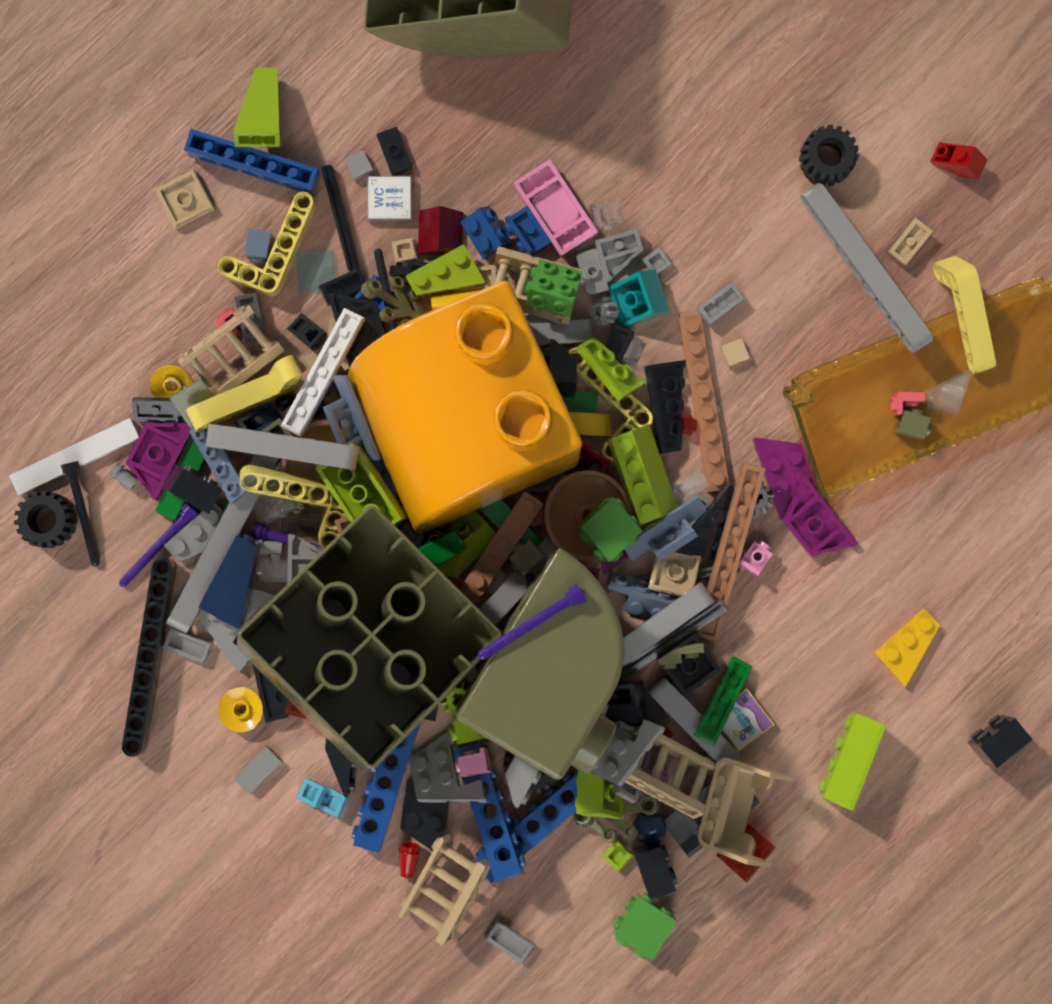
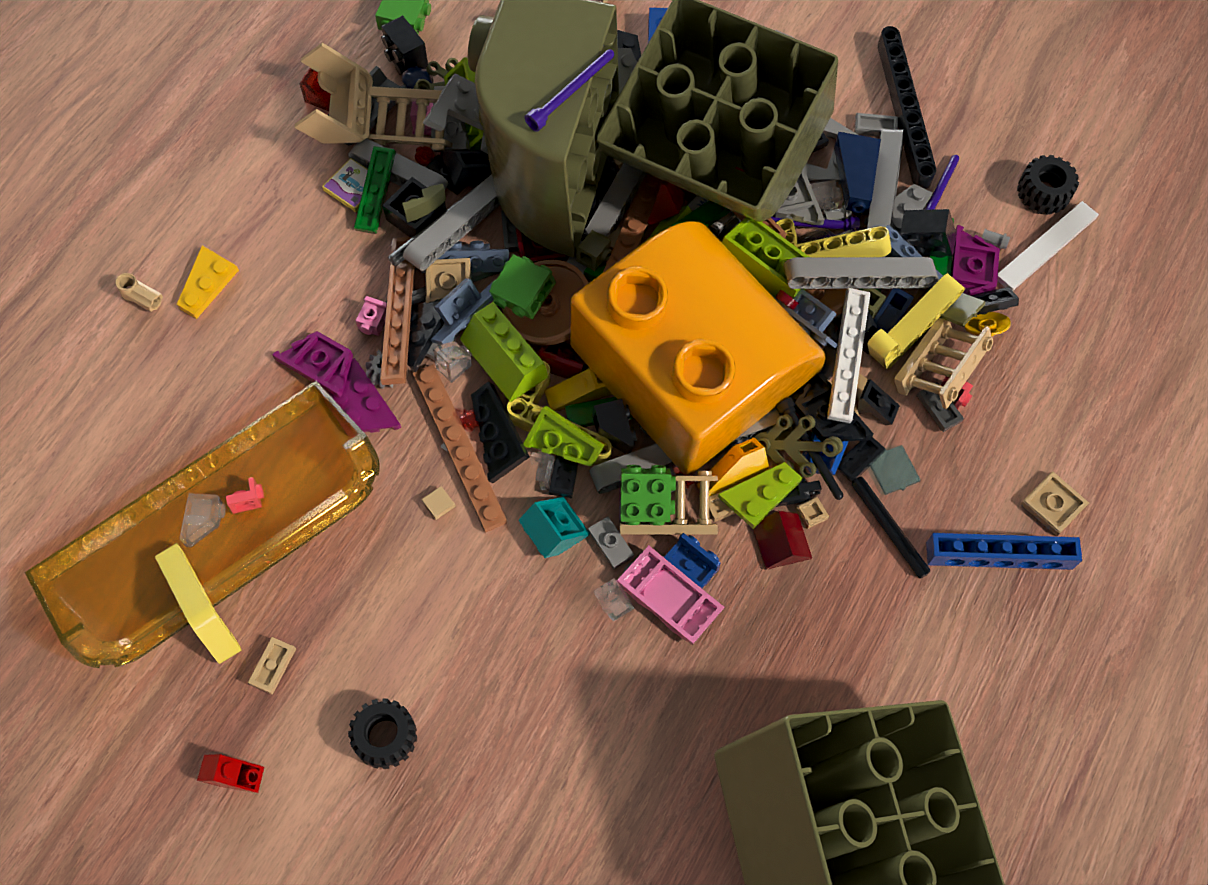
camera: 160 degrees right, 20 degrees down
(72, 471) = (1045, 228): black piece -> none
(258, 245) = (960, 474): sand blue brick -> none
(259, 113) = (1018, 601): lime slope -> none
(277, 253) = (938, 473): light yellow beam -> none
(358, 165) = (892, 585): light grey tile -> none
(363, 439) = (786, 299): none -> dark red tile
(389, 198) = (847, 560): white tile -> none
(394, 151) = (861, 611): black plate -> none
(408, 859) = (624, 17): red cone -> none
(485, 231) = (735, 552): blue bracket -> none
(605, 311) = (585, 503): light grey gear -> none
(617, 855) = (441, 57): lime tile -> none
(618, 251) = (590, 569): light grey wing -> none
(658, 261) = (545, 572): light grey tile -> none
(720, 304) = (465, 545): light grey plate -> none
(852, 760) = (241, 170): lime slope -> none
(866, 268) = (316, 618): light grey beam -> none
(913, 425) = (234, 475): olive brick -> none
(974, 645) = (138, 292): none -> tan piece
(999, 740) = (102, 215): black brick -> none

